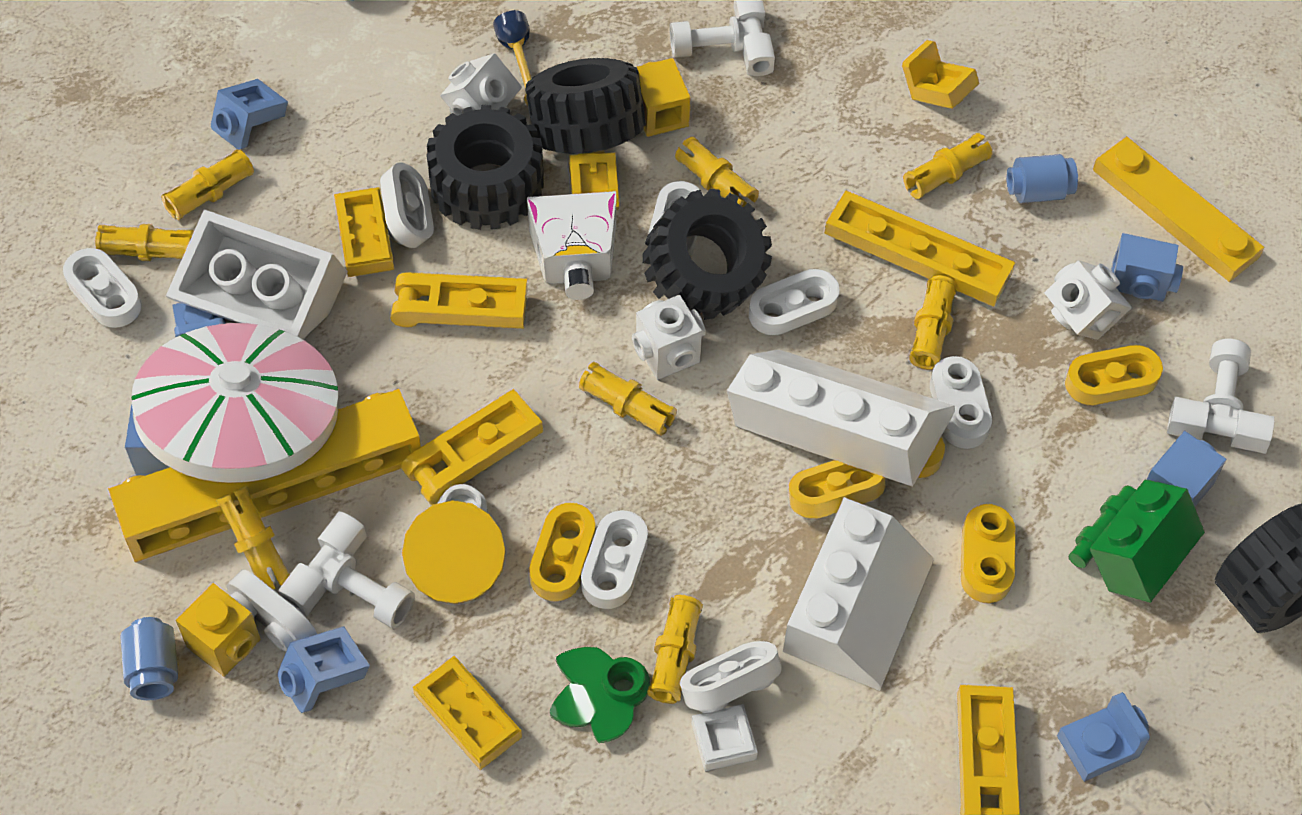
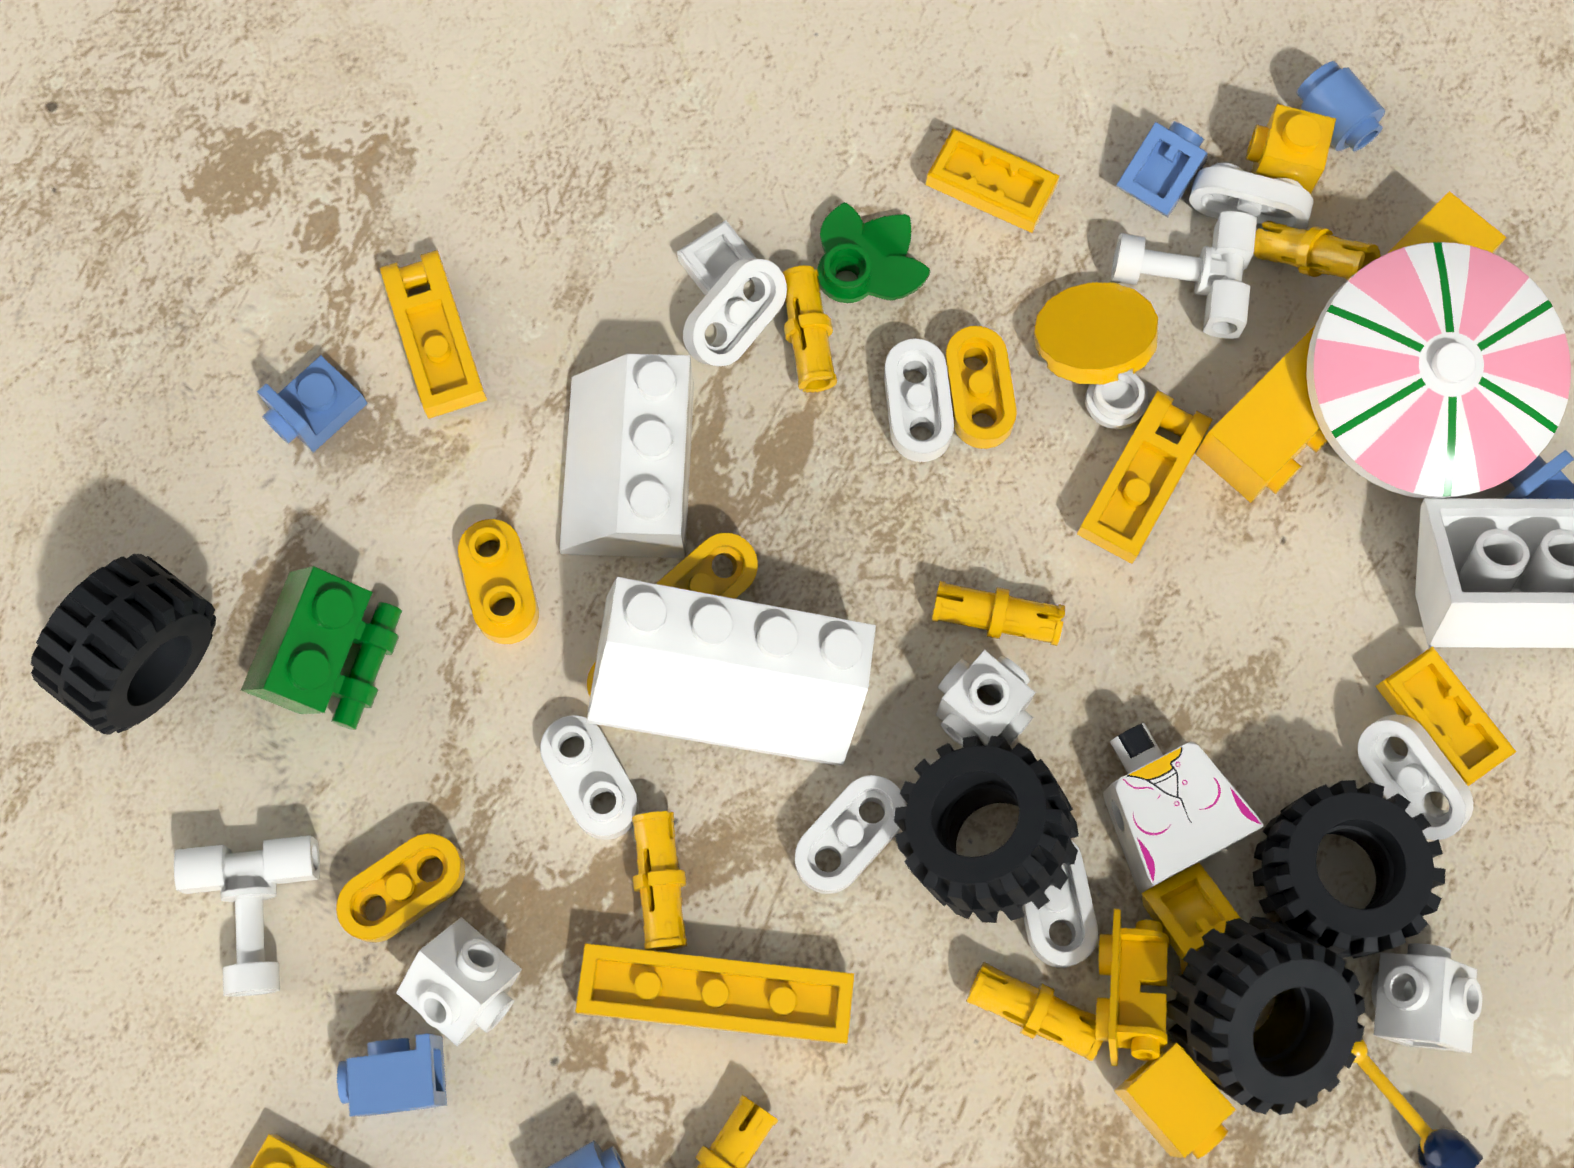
camera: 160 degrees right, 15 degrees up
(459, 300) = (1265, 665): yellow plate -> none
(666, 136) = (1131, 1016): none -> yellow hinge
(1189, 465) = (279, 764): medium blue brick -> none

